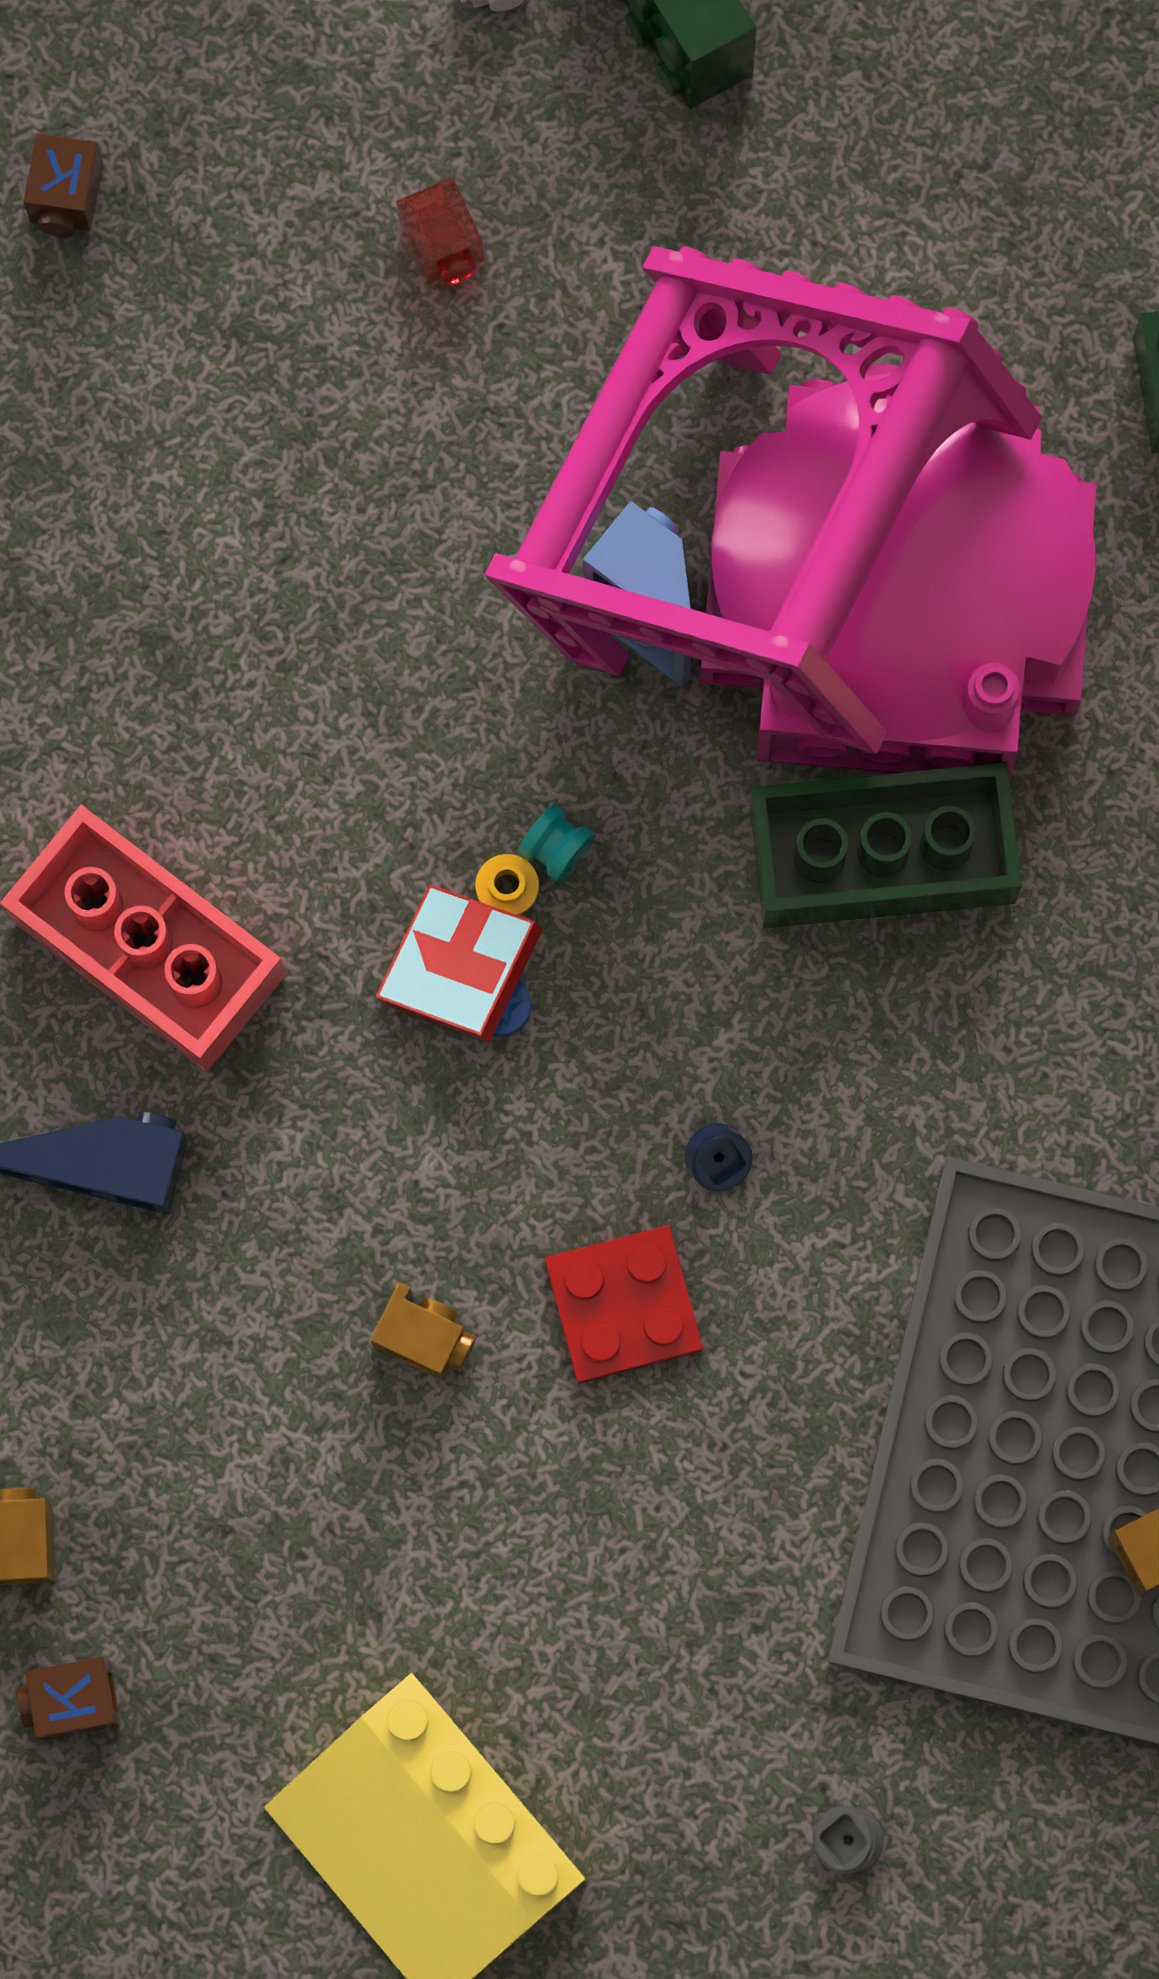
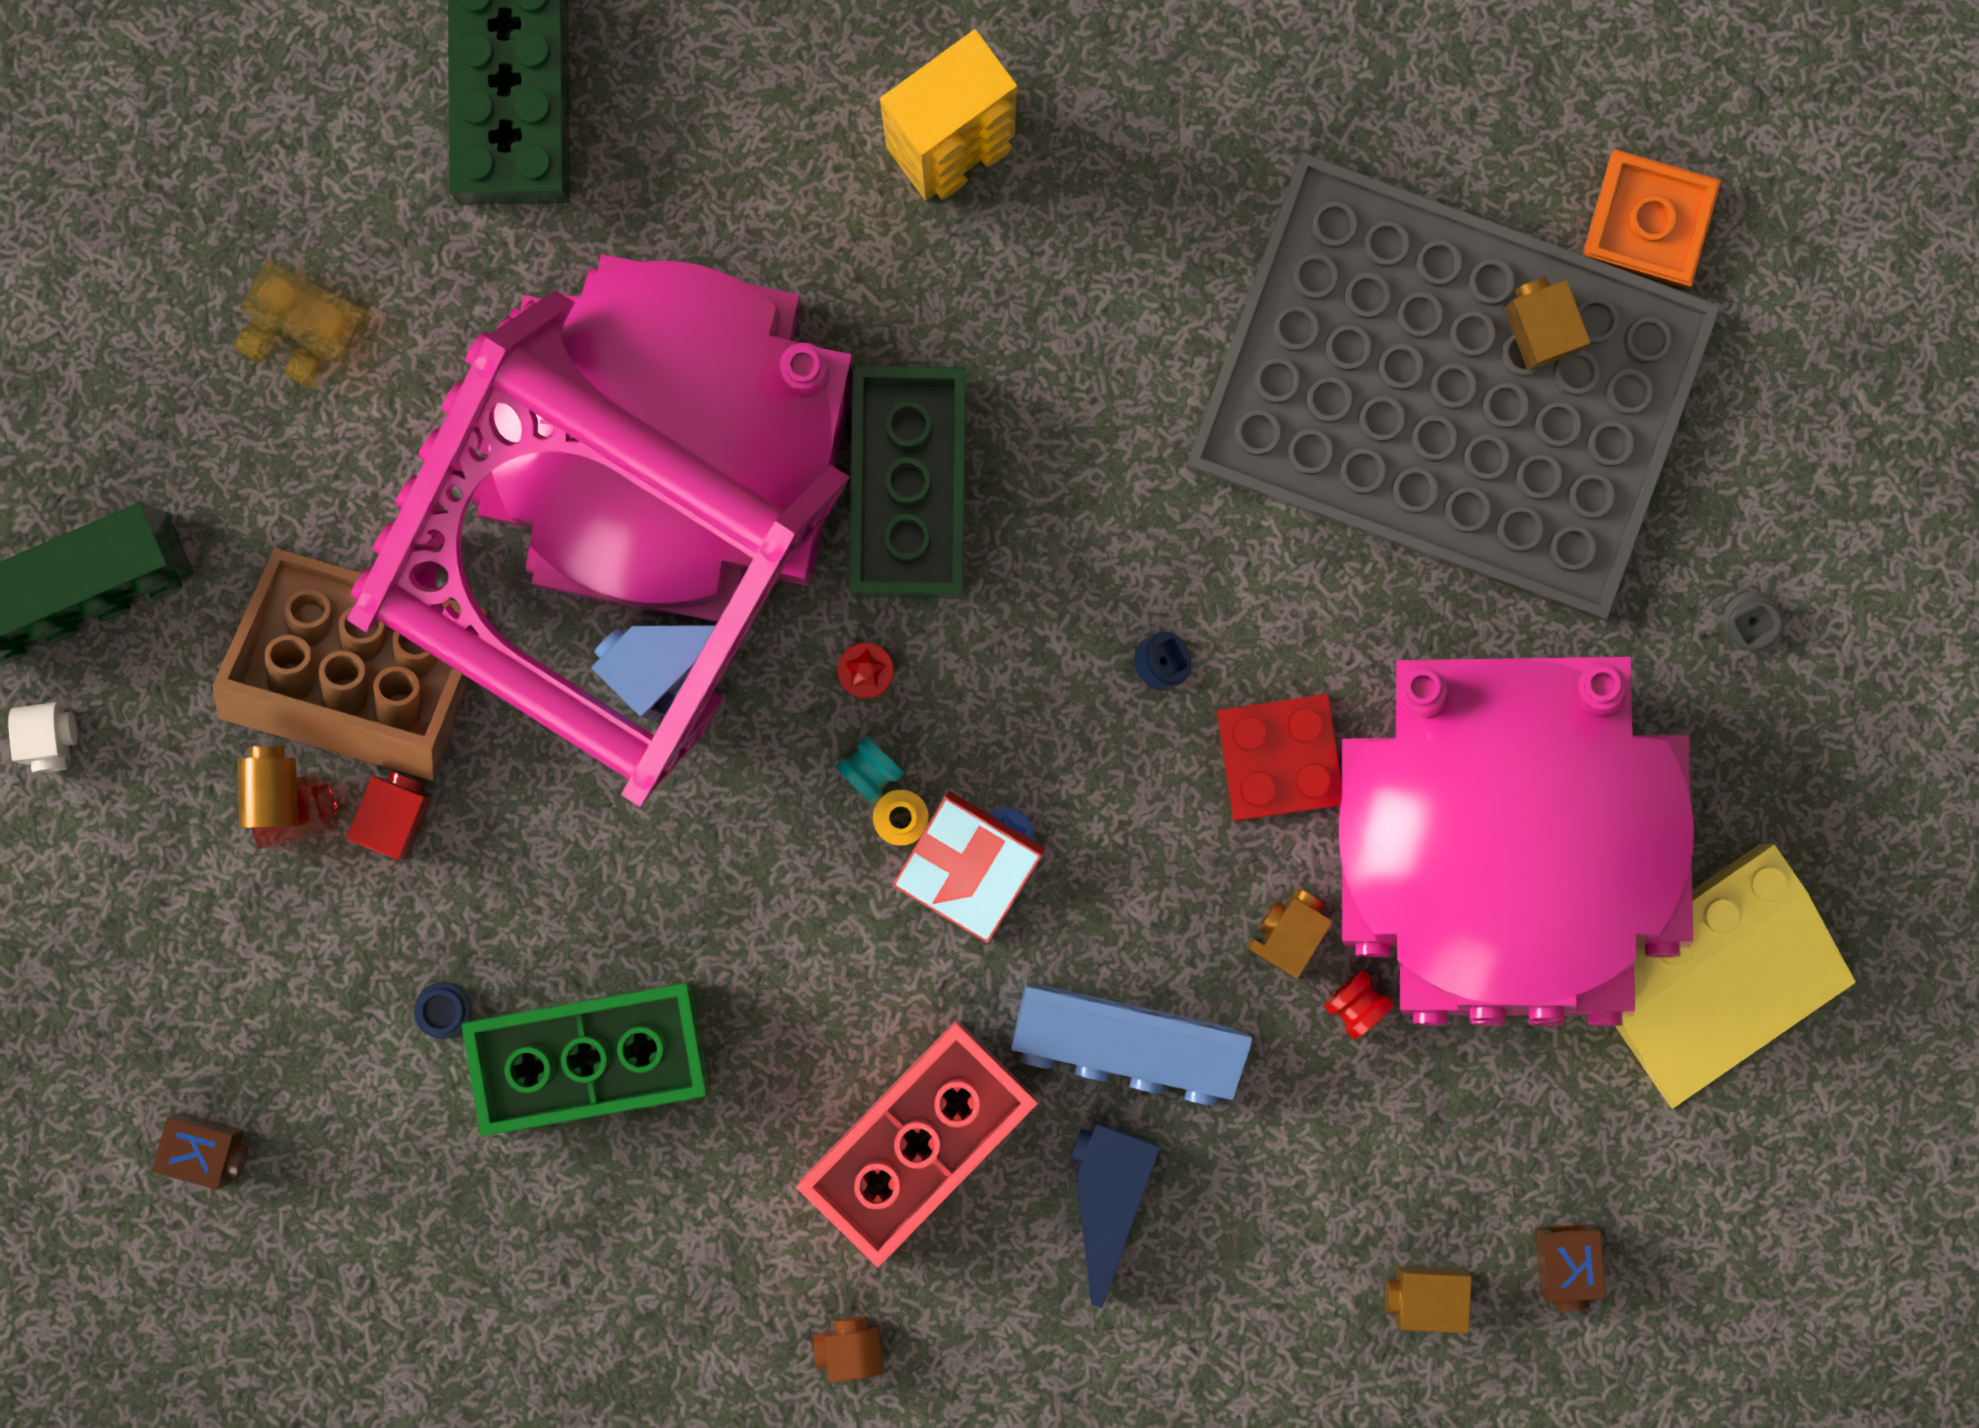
camera: 90 degrees left, 10 degrees up
(224, 536) = (568, 1091): none -> green brick
(240, 420) = (442, 1010): none -> dark blue plate
(279, 1160) = (1130, 1042): none -> medium blue slope
(348, 1420) = (1358, 1004): none -> red wheel
(448, 337) = (390, 815): none -> red brick
(462, 198) = (267, 788): none -> pearl gold brick
(556, 1566) = (1516, 841): none -> dark pink windscreen
(581, 259) = (328, 683): none -> medium nougat slope
(668, 829) = (865, 670): none -> red tile
(991, 184) = (302, 311): none -> clear yellow plate

